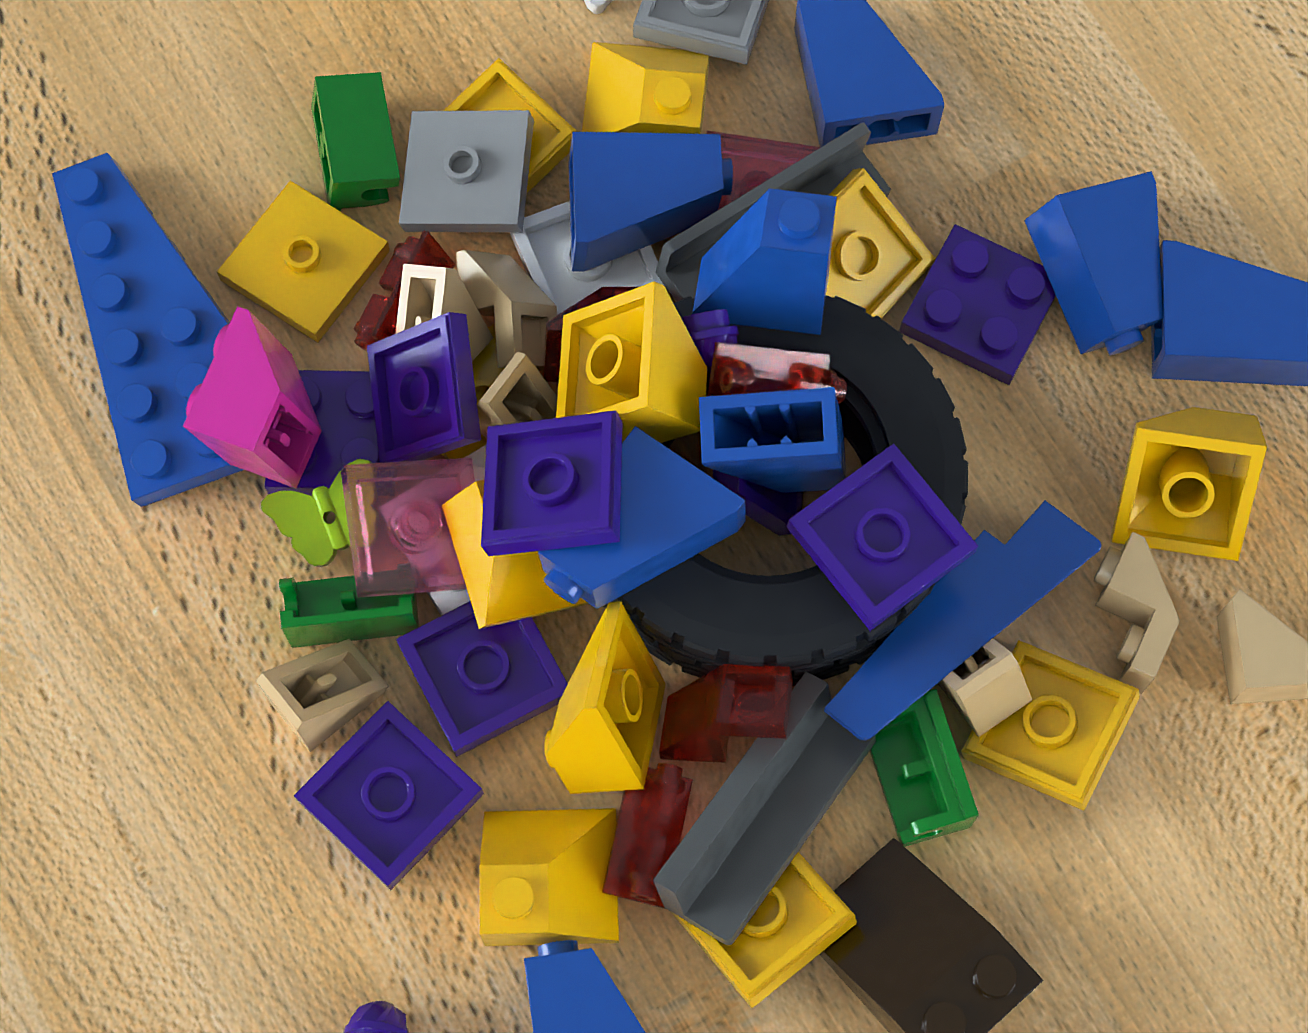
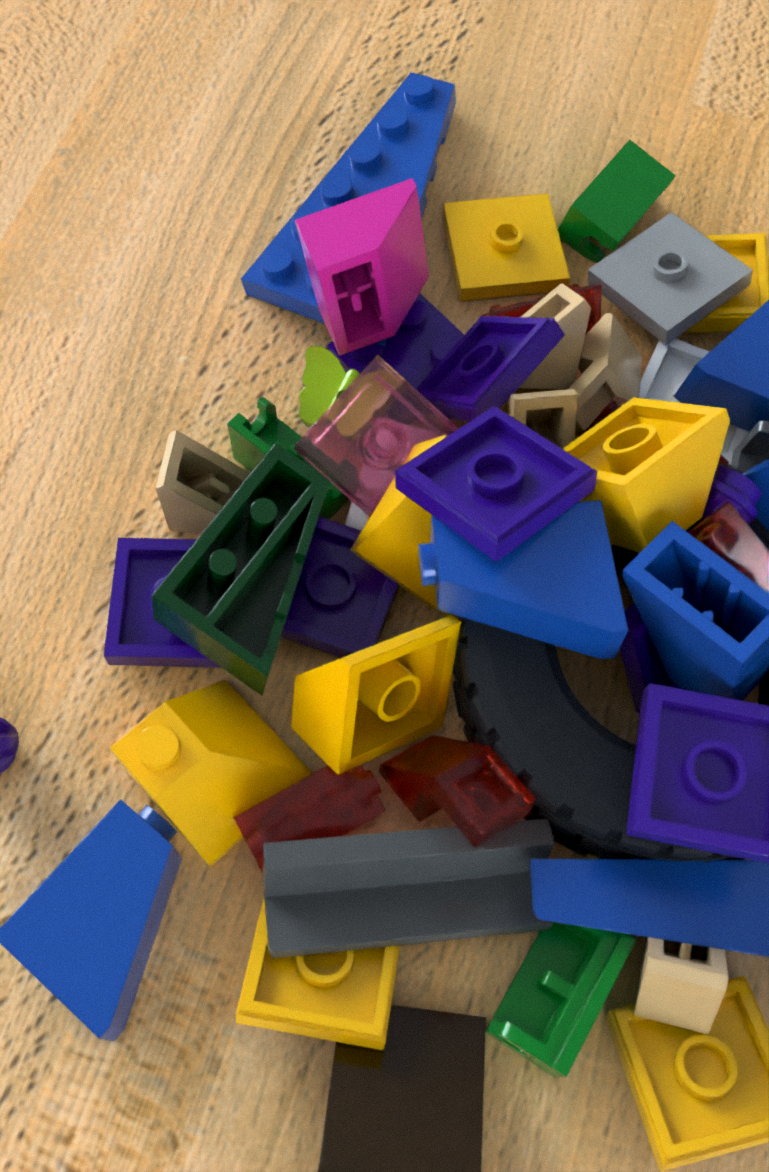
camera: 45 degrees right, 5 degrees down
(432, 718) = (244, 569): none -> dark green wedge

